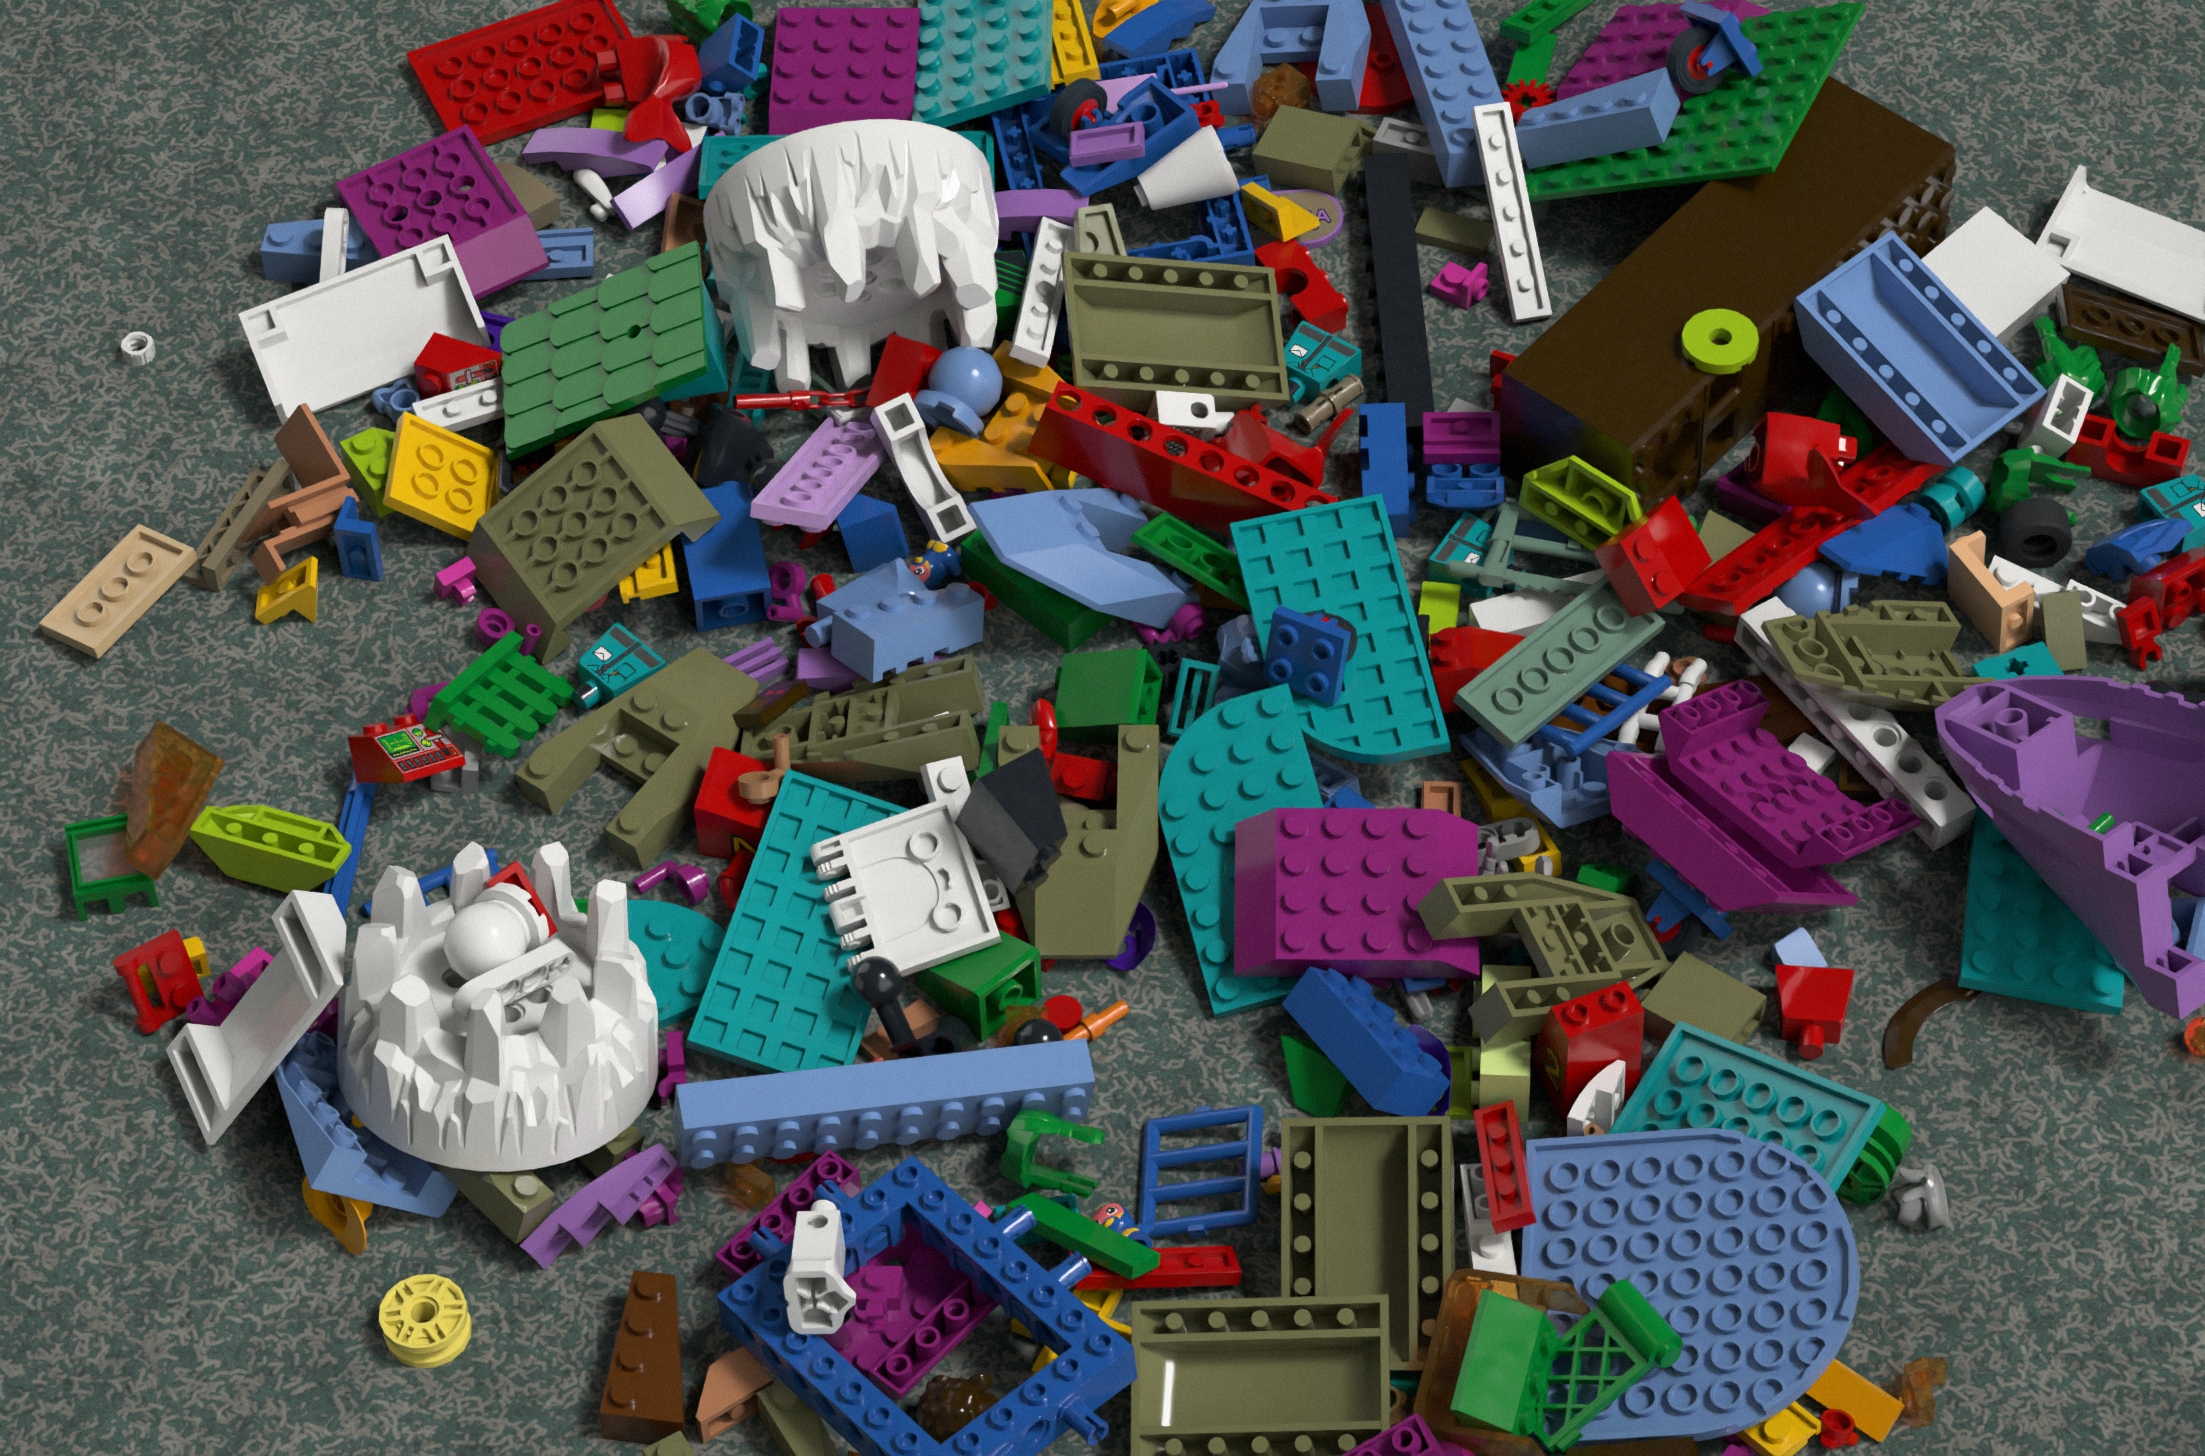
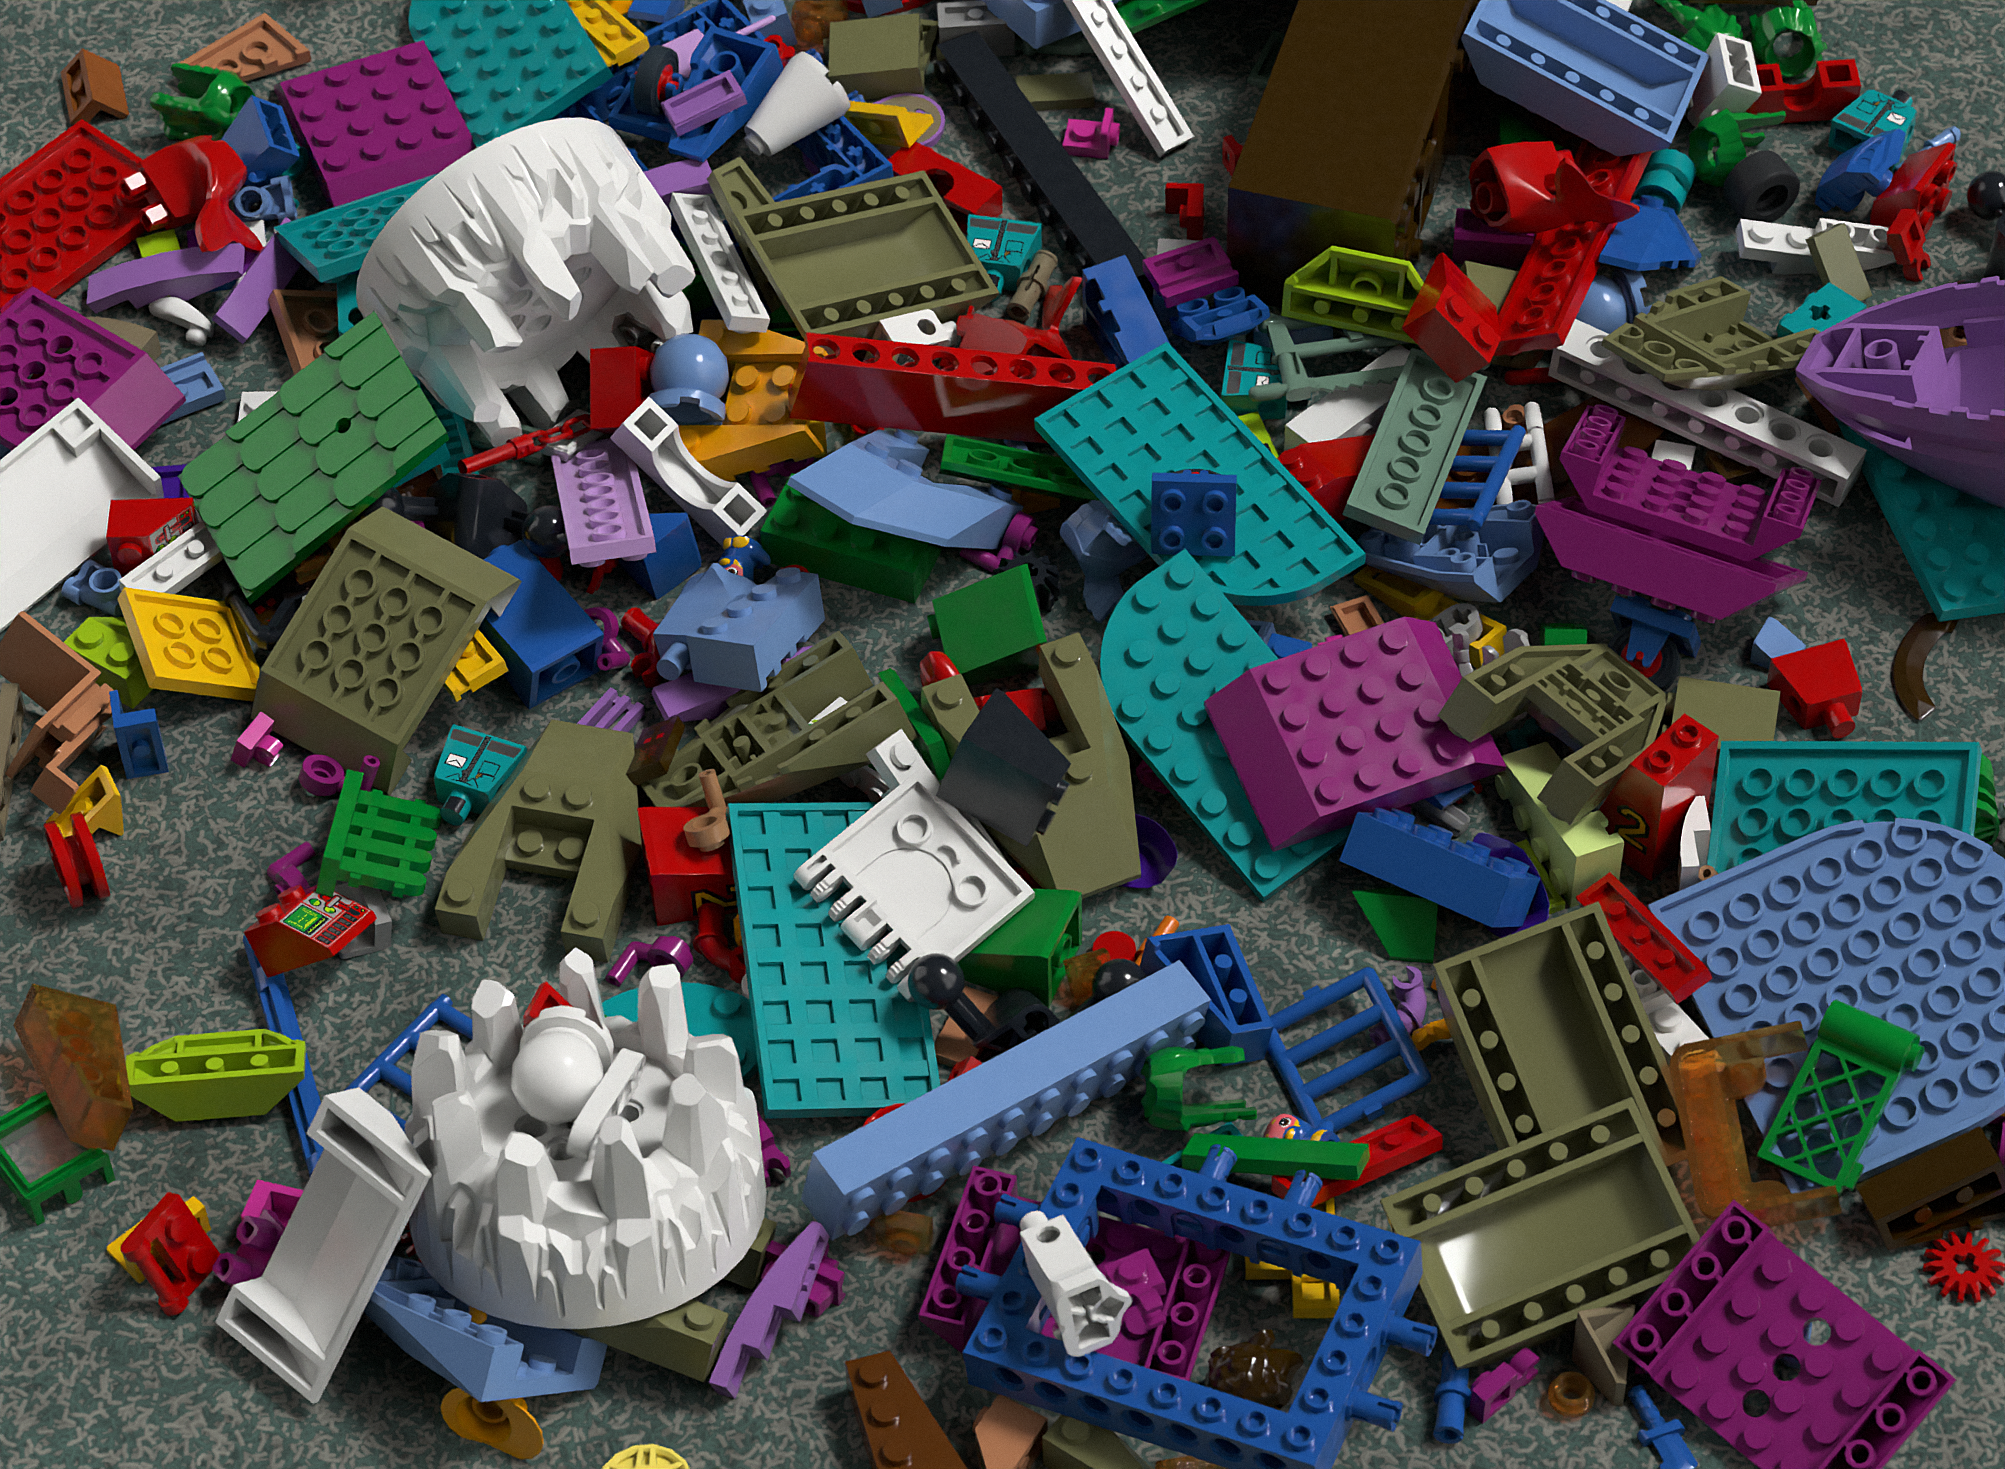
camera: 25 degrees left, 0 degrees up
(256, 630) = (76, 860): none -> red wheel
(1122, 1067) = (1217, 964): none -> blue wedge
(1199, 668) = (1086, 597): teal tile -> none
(1503, 1366) = (1767, 1126): green slope -> none
(1724, 325) = (1420, 78): lime tile -> none
(1998, 614) = (1754, 260): light nougat panel -> none

